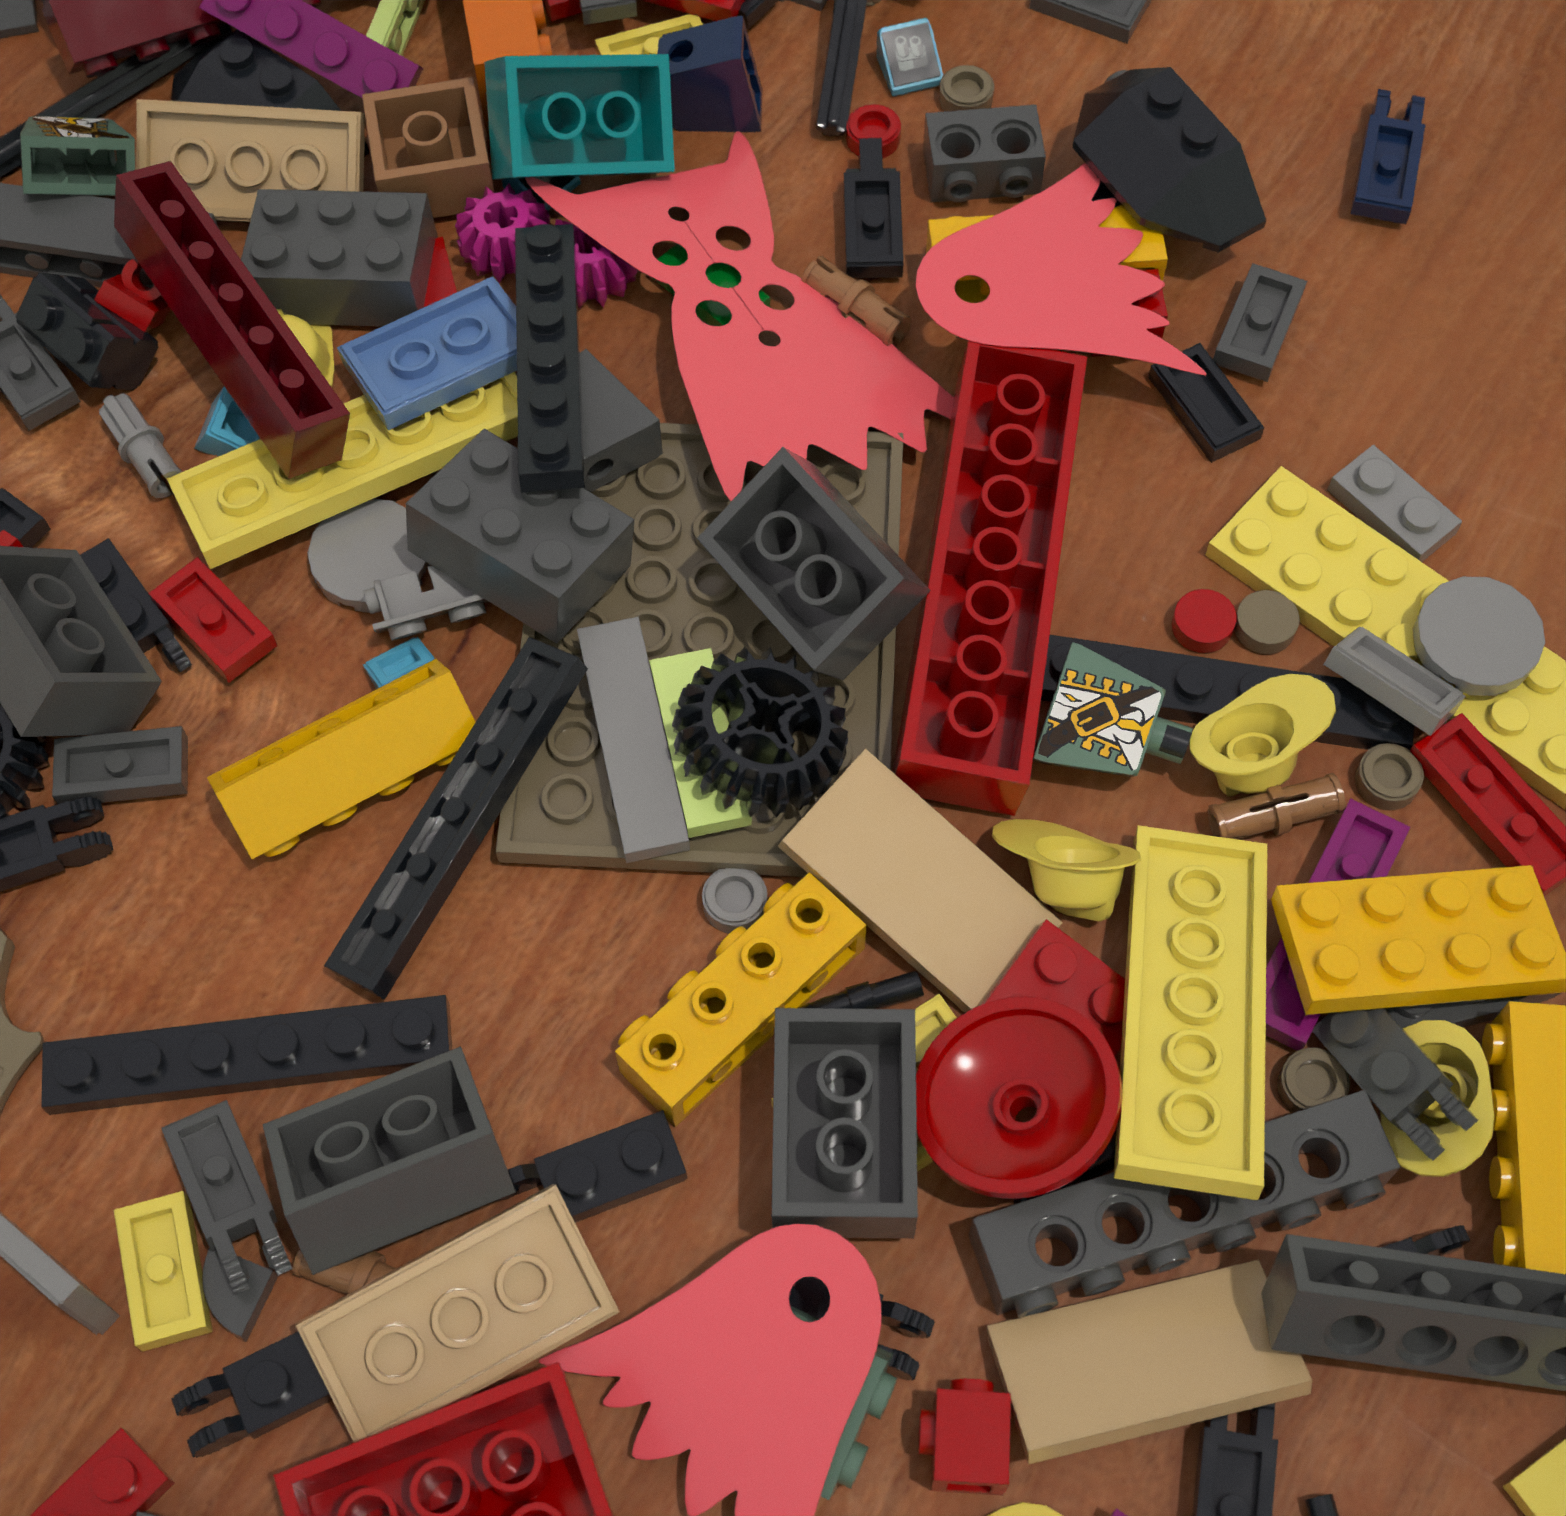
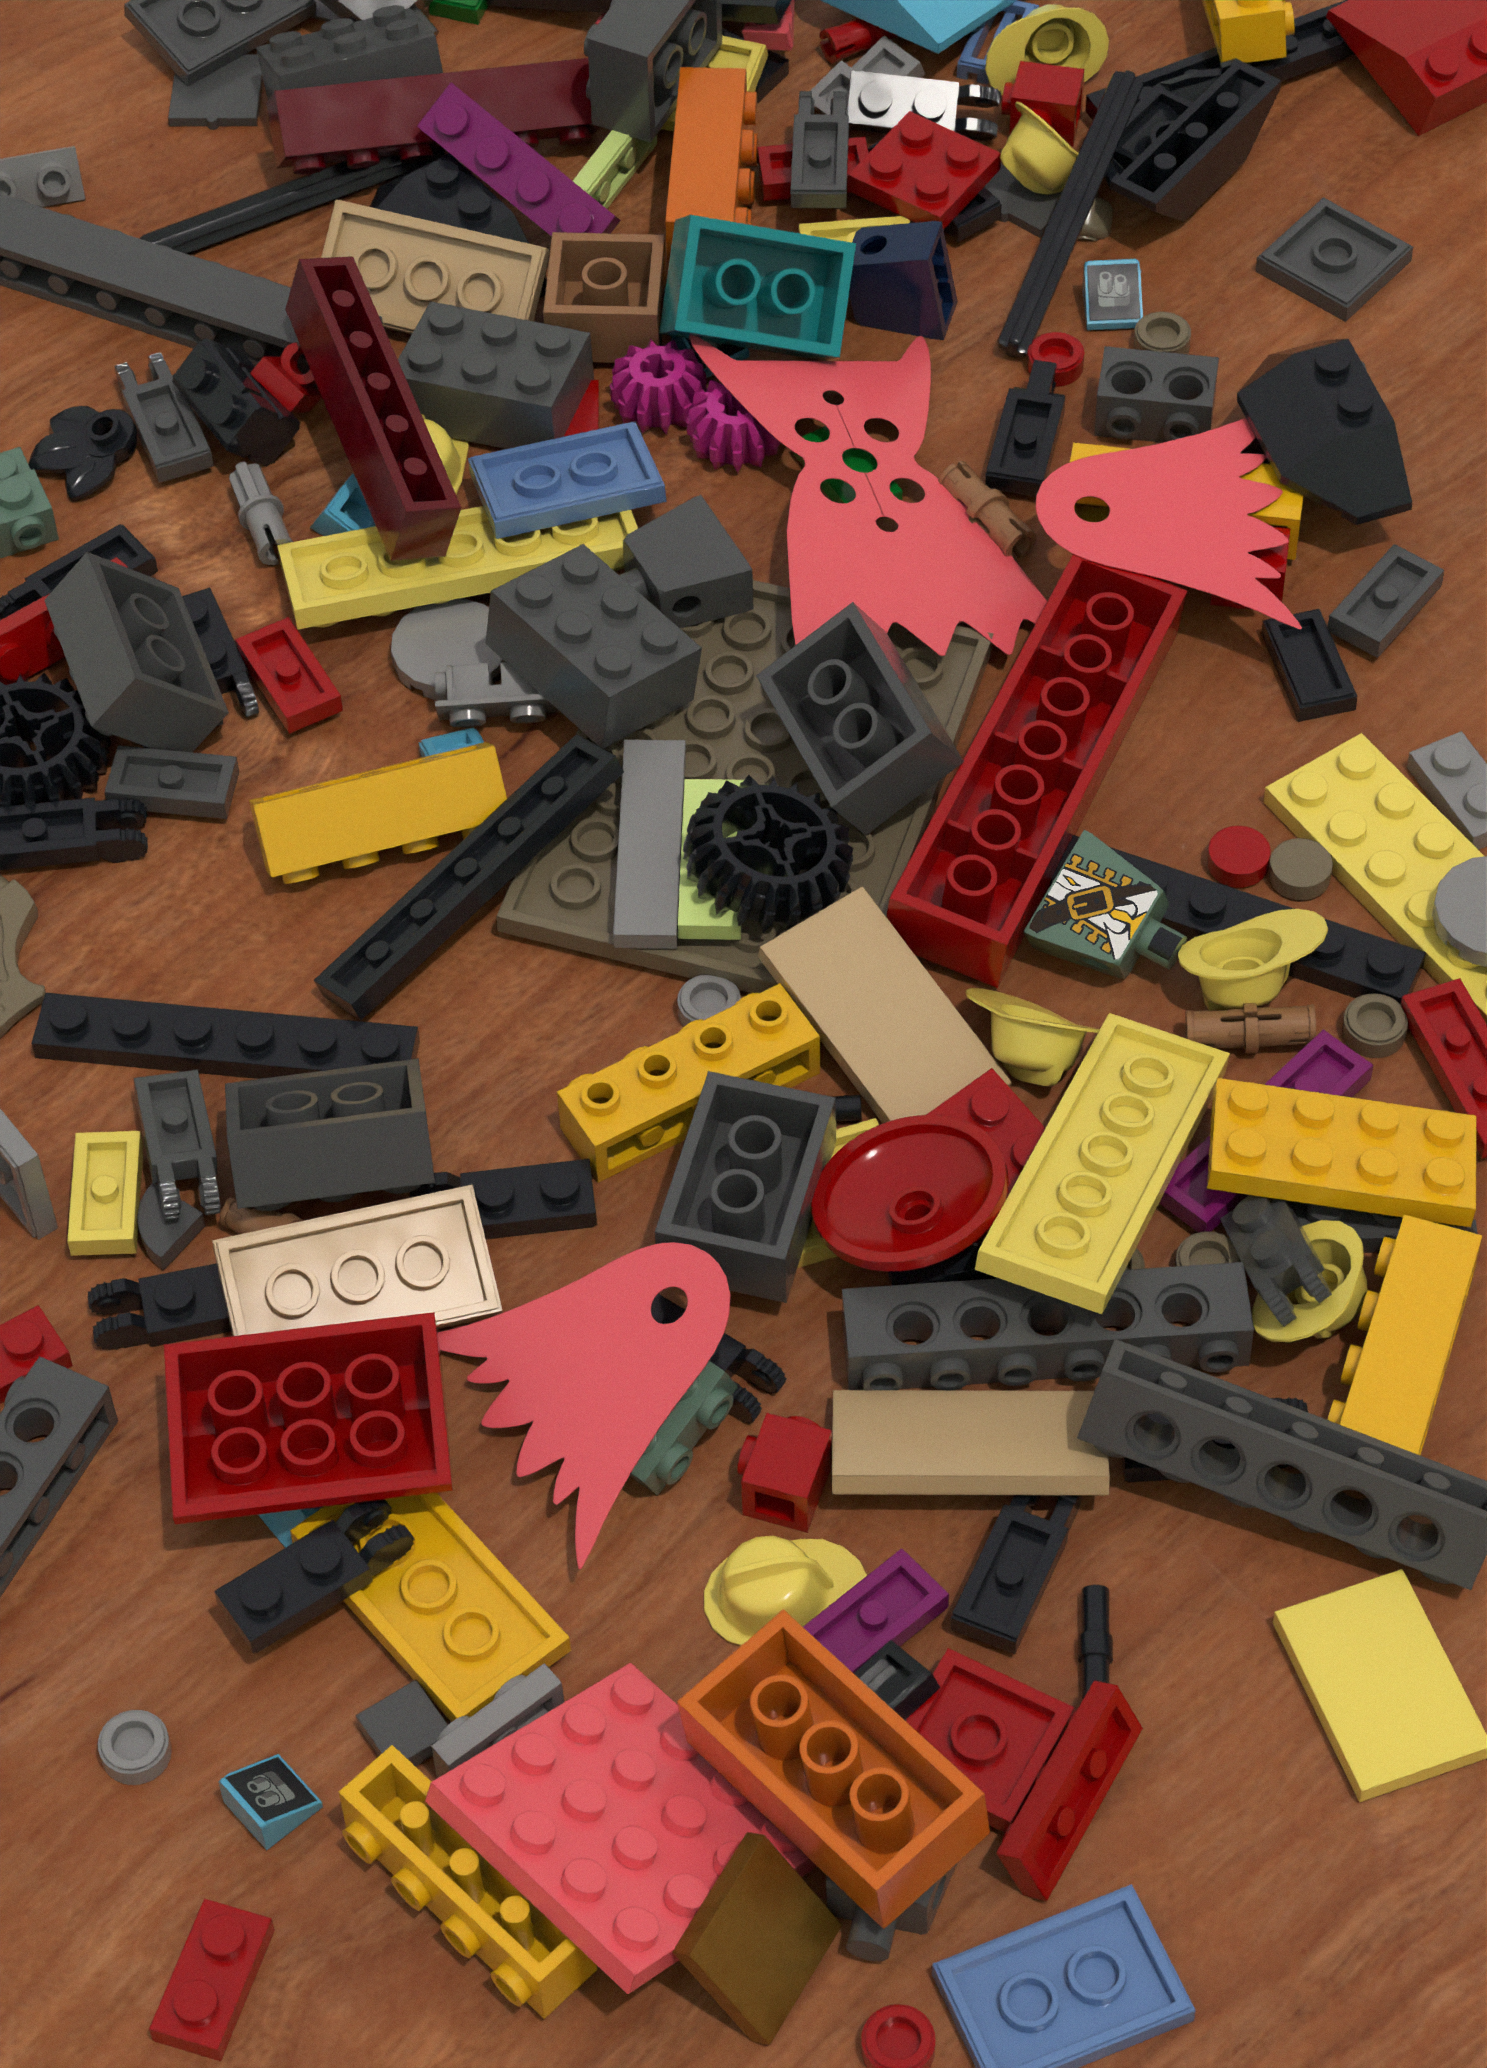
camera: 15 degrees right, 10 degrees down
(74, 155) = (263, 241): sand green torso -> none
(548, 360) = (661, 493): black plate -> none
(1395, 680) = (1401, 935): light grey tile -> none

